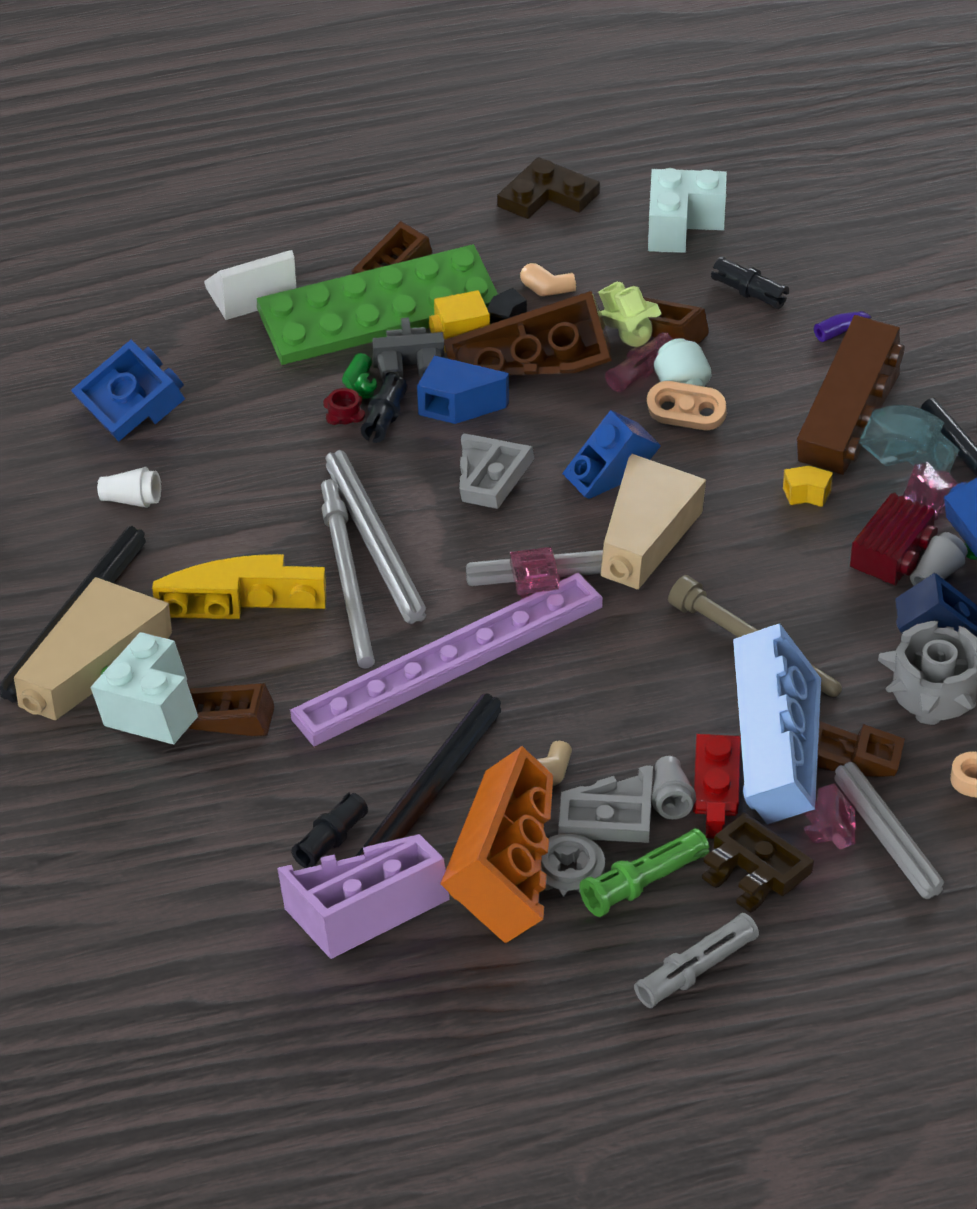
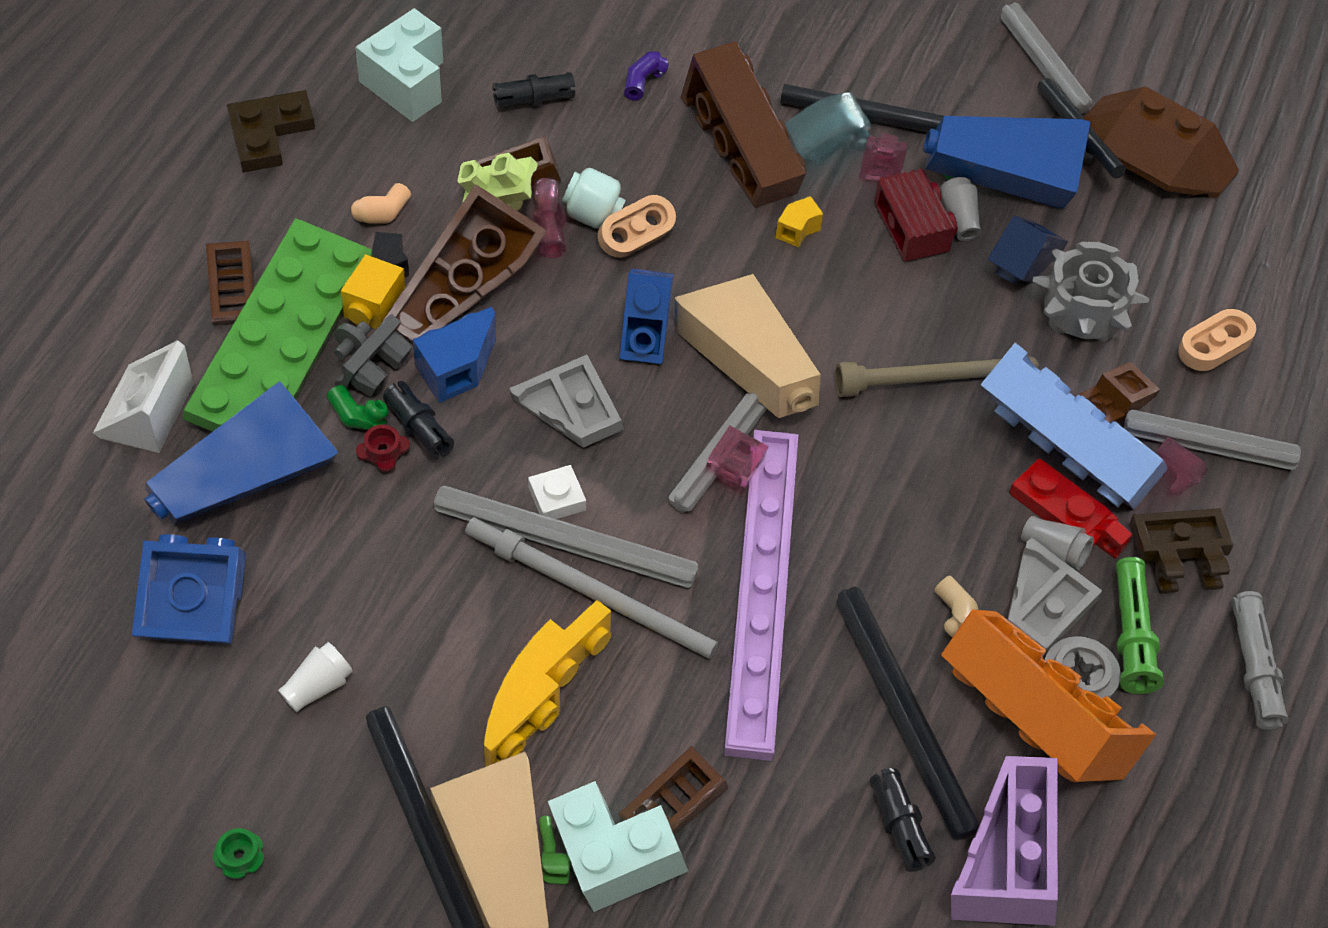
camera: 55 degrees left, 10 degrees up
(249, 344) = (245, 455): none -> blue slope
(406, 511) = (557, 493): none -> white plate

